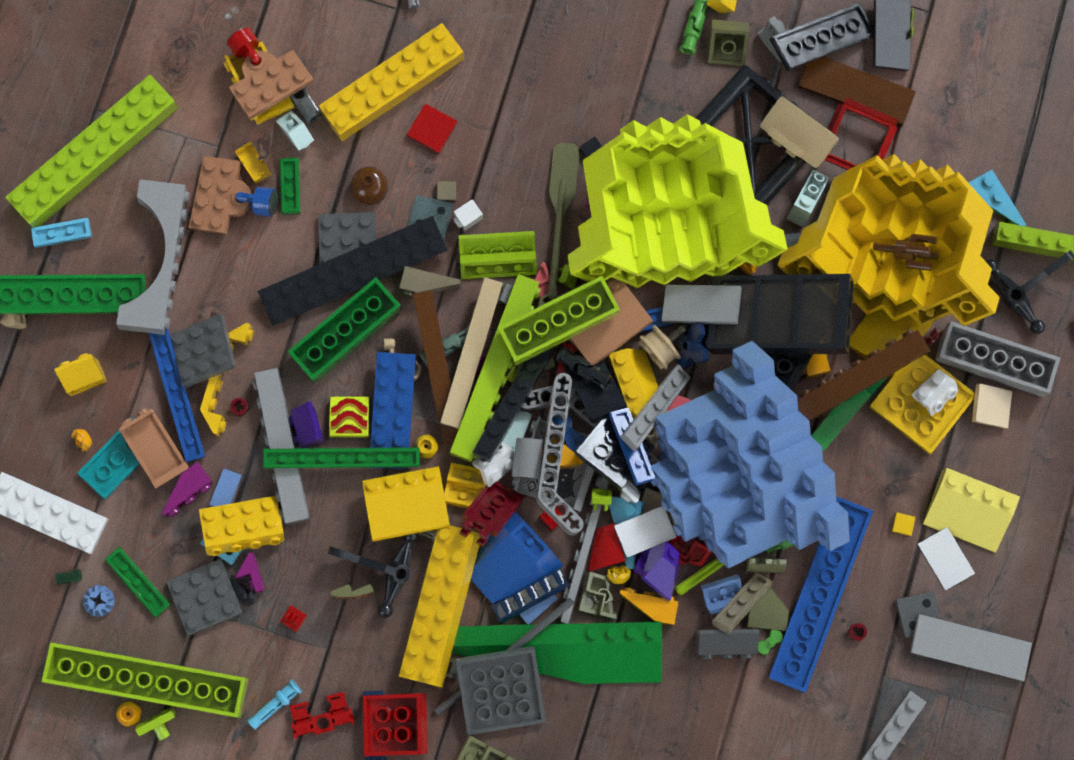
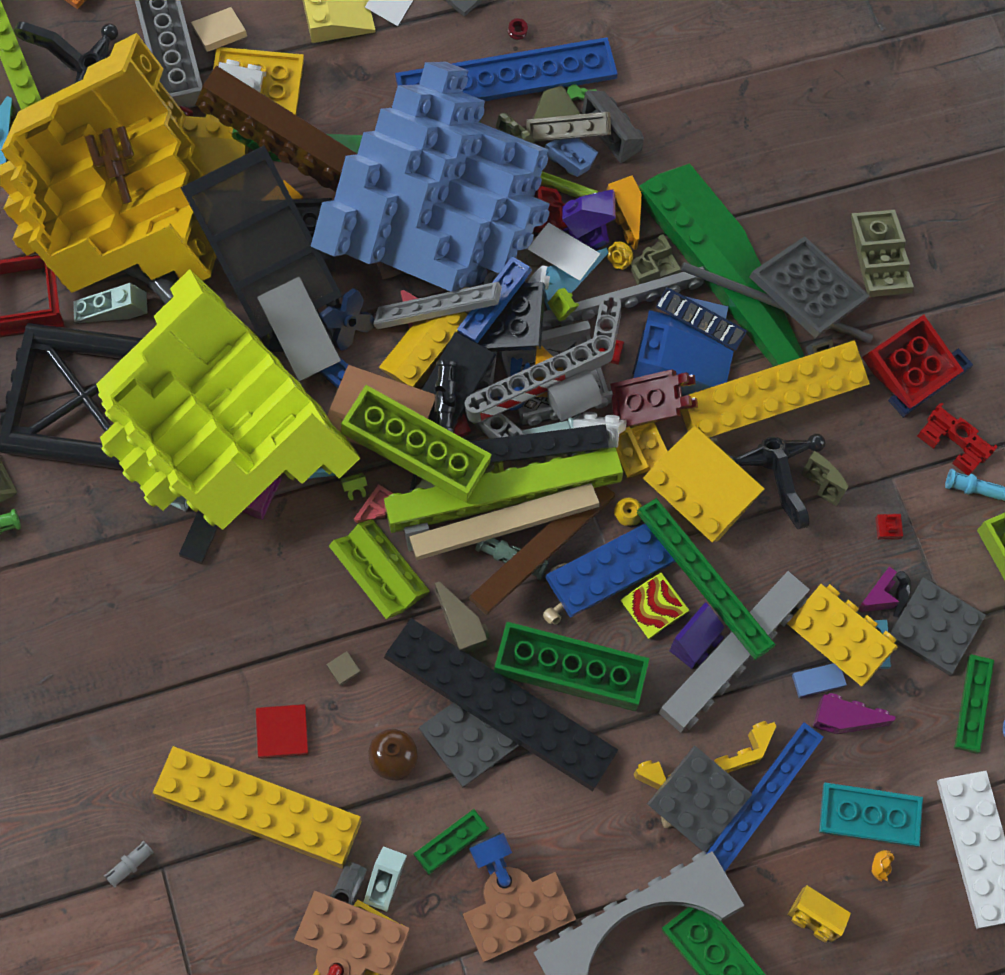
camera: 125 degrees left, 10 degrees down
(153, 447) = (836, 778): nougat panel -> none
(243, 402) = (733, 729): dark red bush -> none
(248, 156) = (450, 909): yellow piece -> none
(426, 207) = (378, 673): clear light blue tile -> none
(467, 215) = (357, 626): white brick -> none
(562, 193) = (267, 547): olive piece -> none
(606, 548) = (603, 279): red slope -> none
(660, 346) = (368, 345): tan wheel -> none
(798, 133) = (46, 344): tan bracket -> none
(903, 524) = (388, 45): yellow tile -> none

